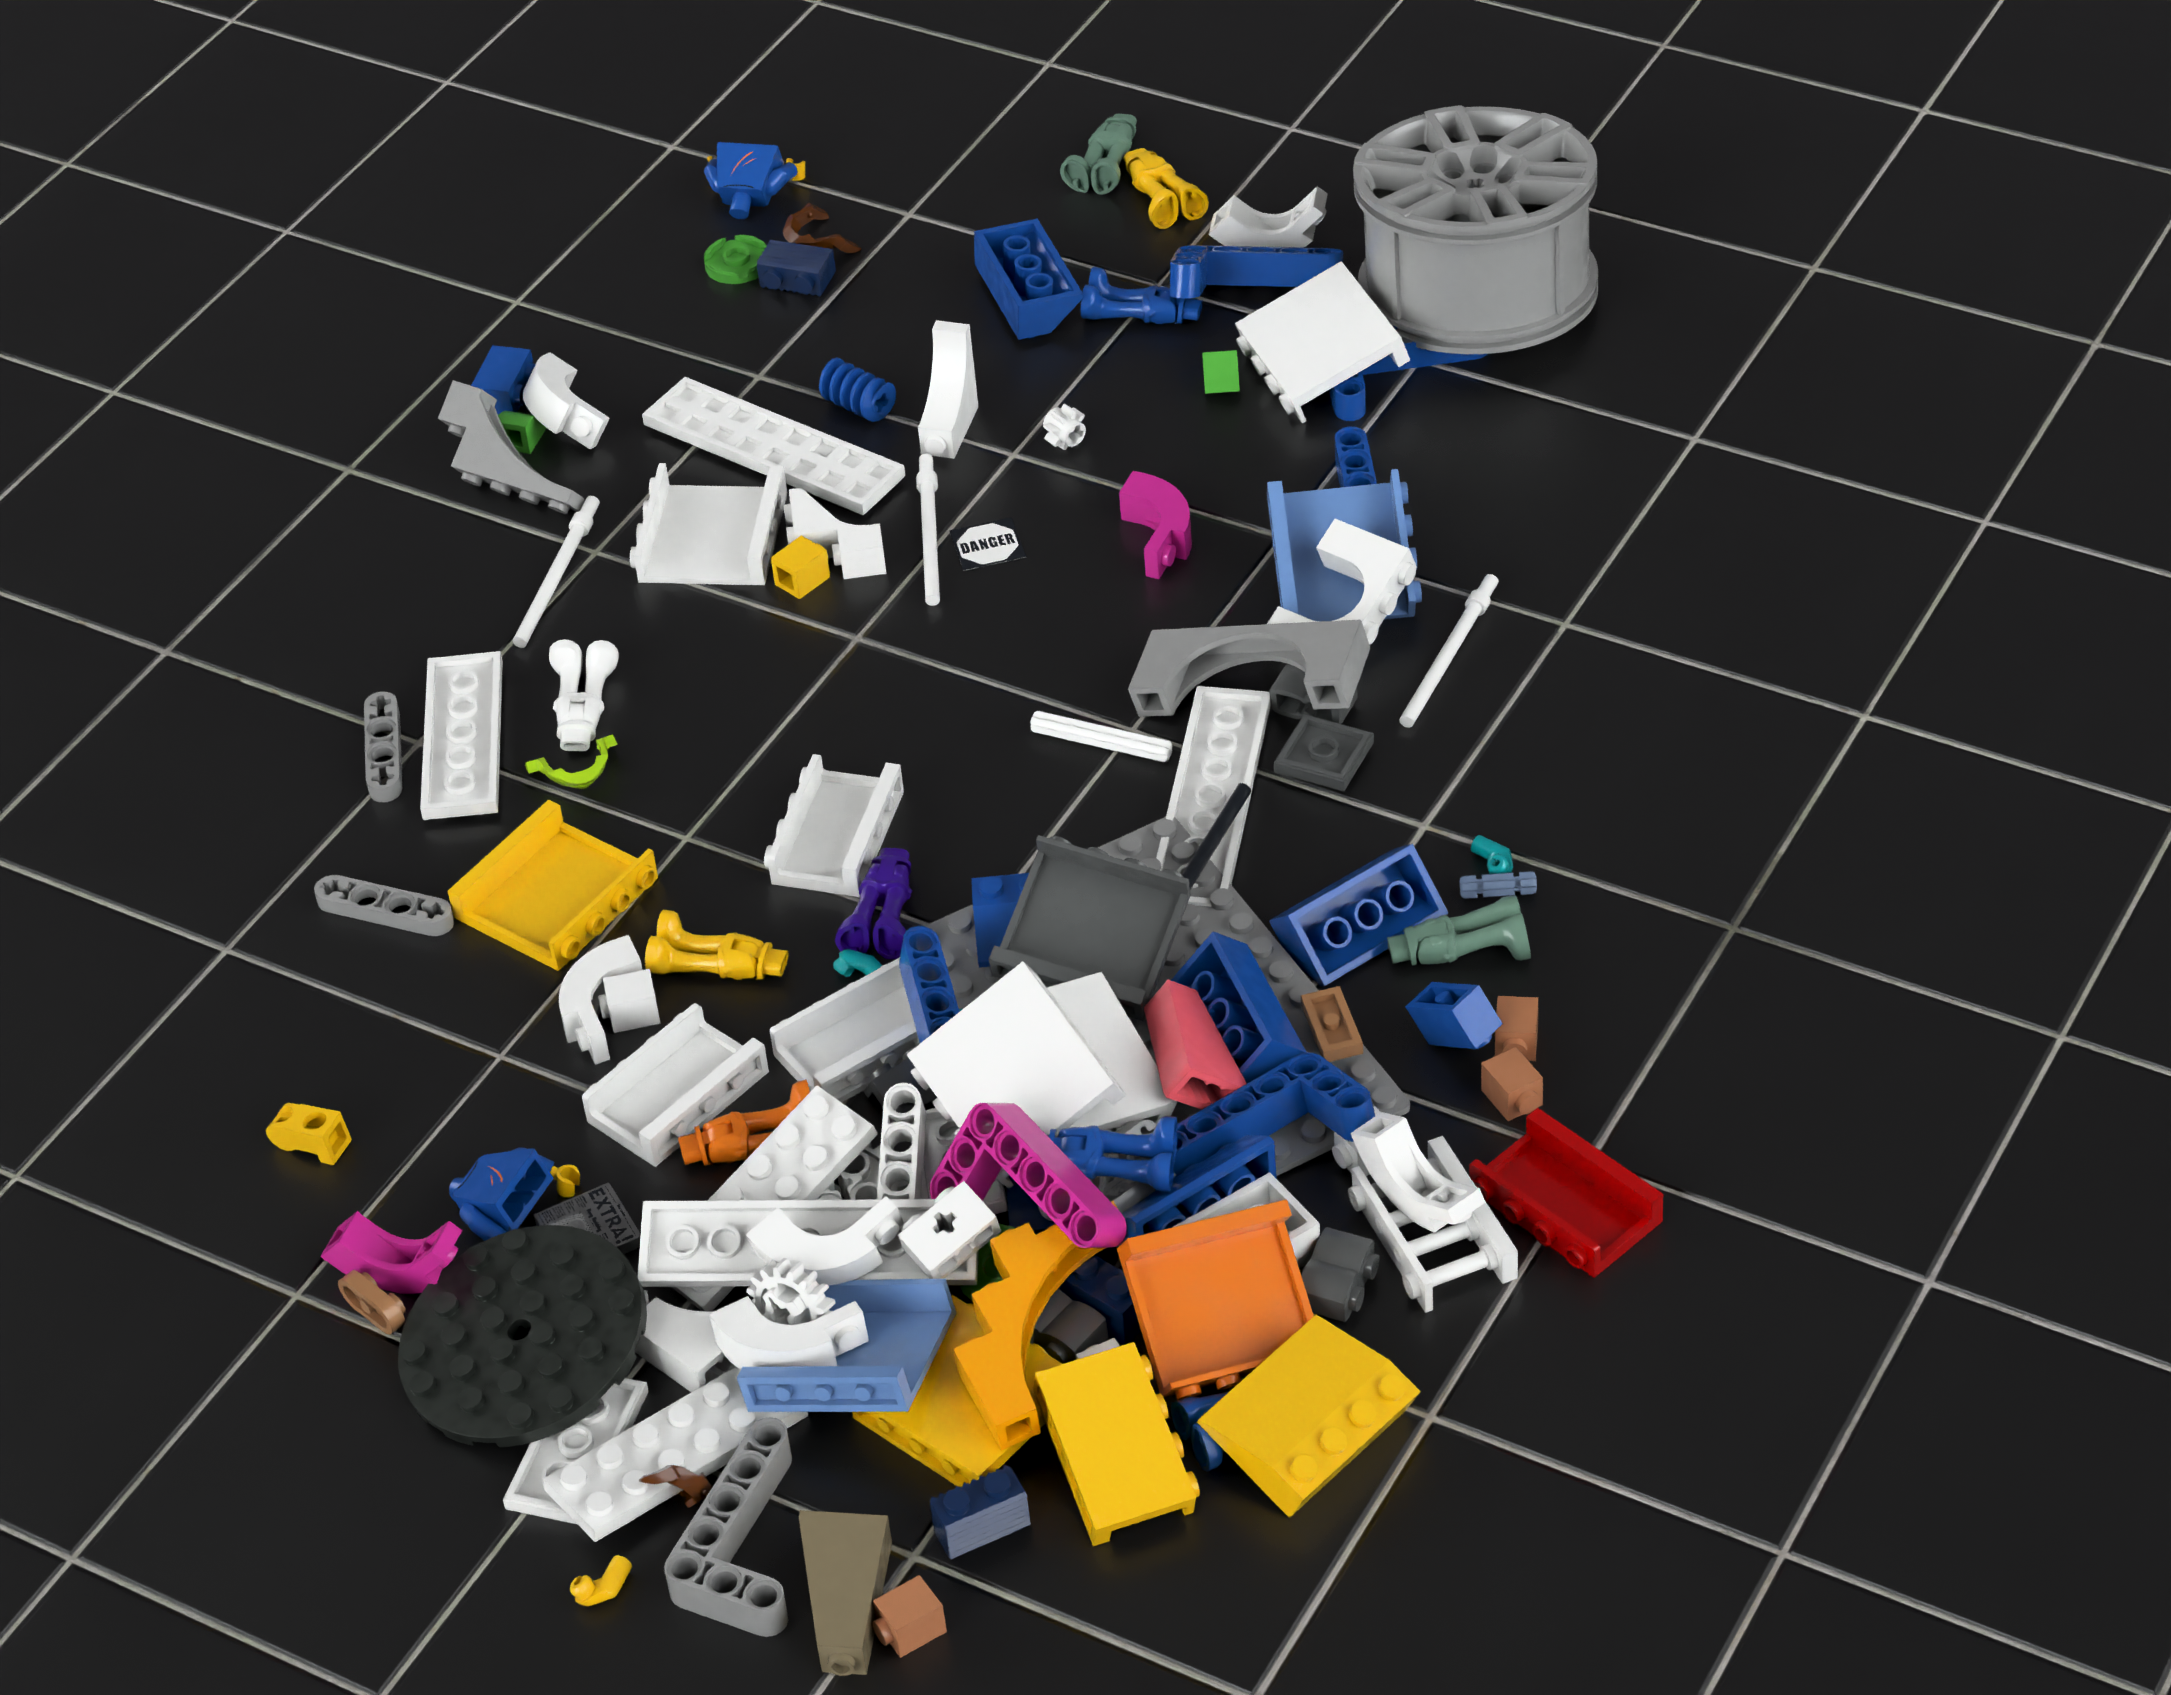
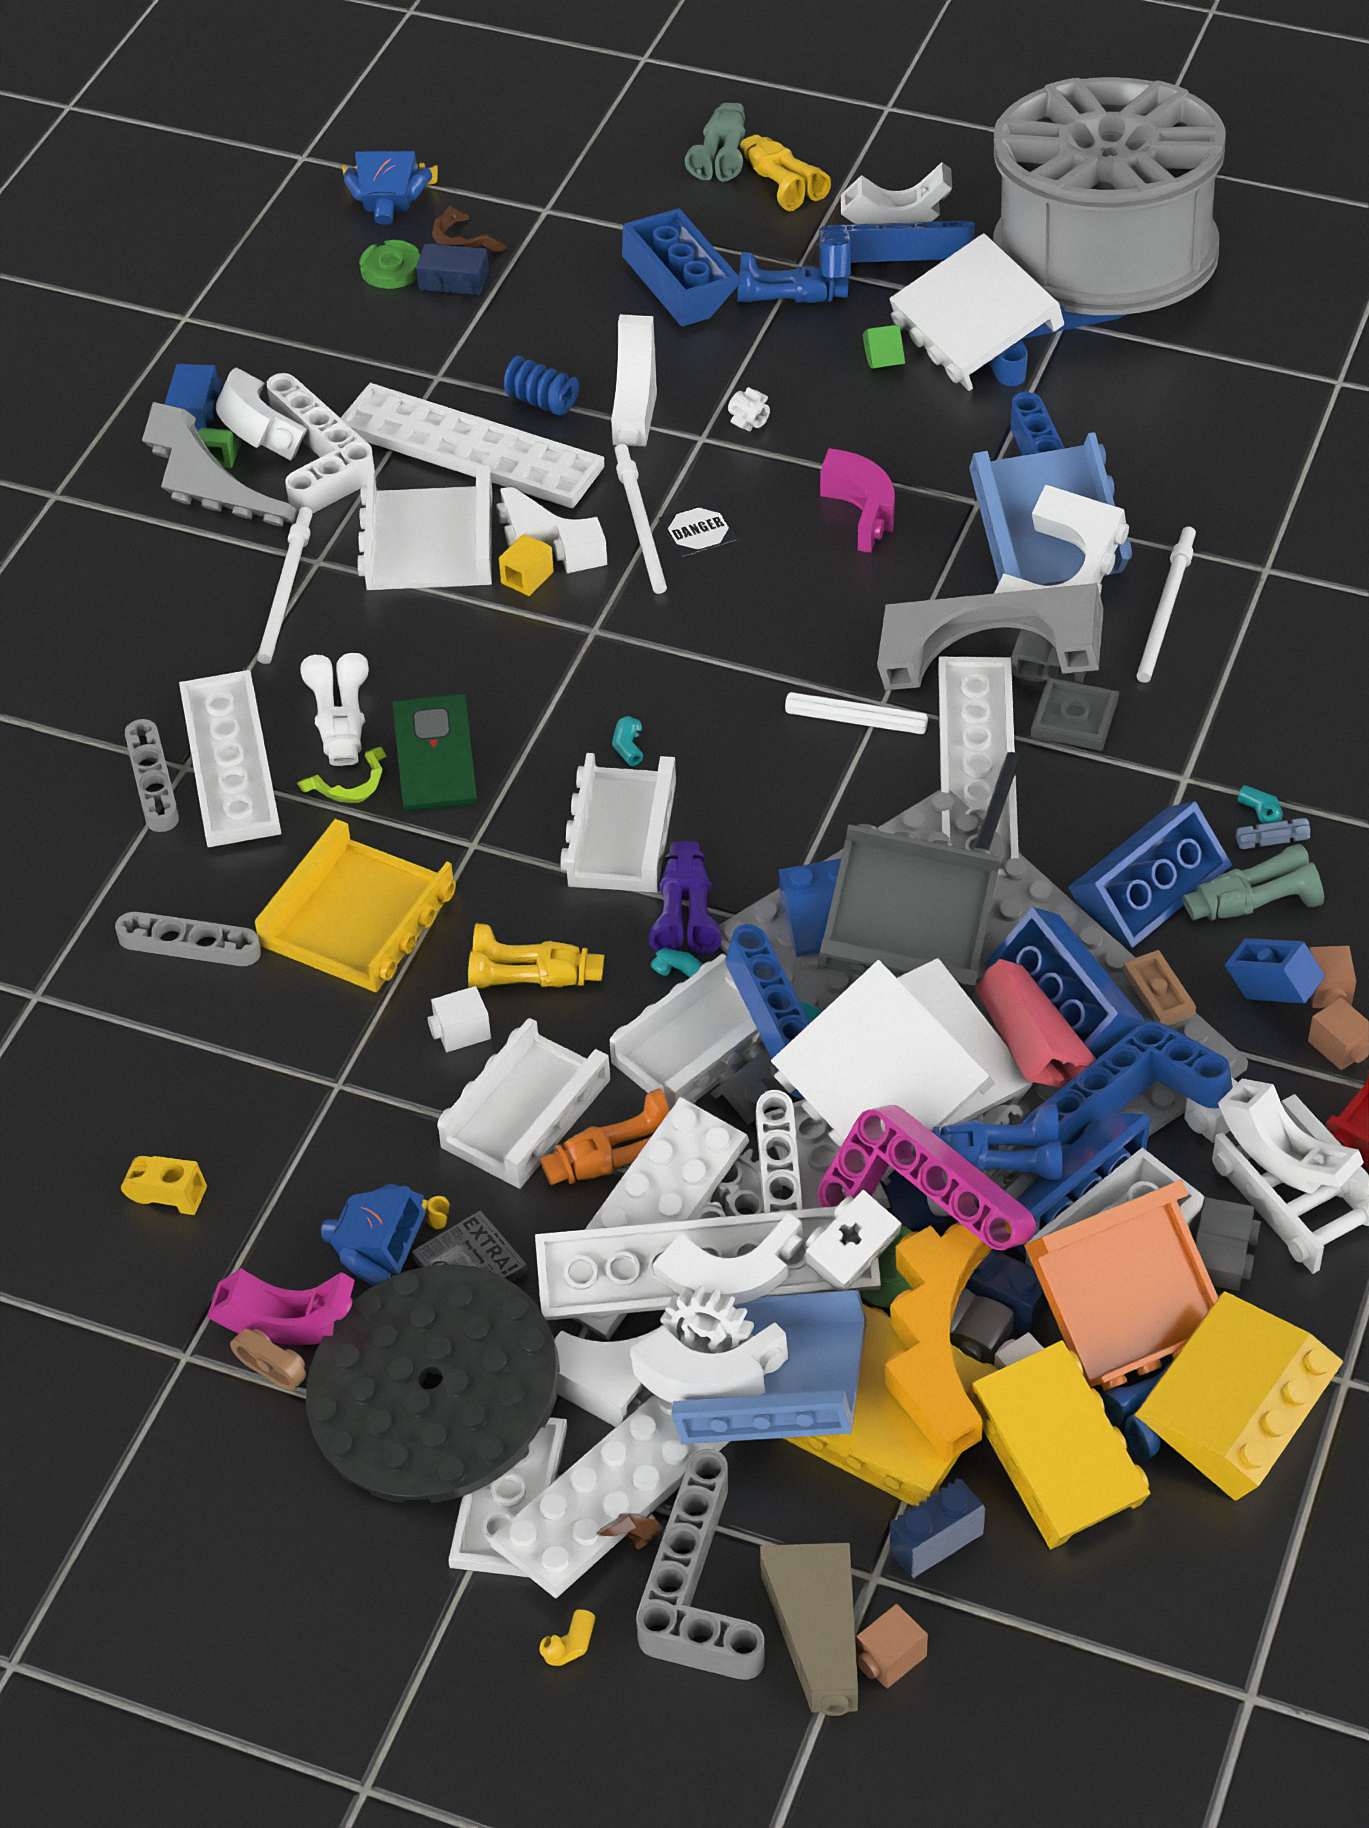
camera: 10 degrees left, 5 degrees up
(581, 988) = (411, 1012): white arch -> none
(638, 436) = (342, 451): none -> white beam
(665, 743) = (434, 752): none -> dark green slope
(857, 748) = (623, 740): none -> teal arm

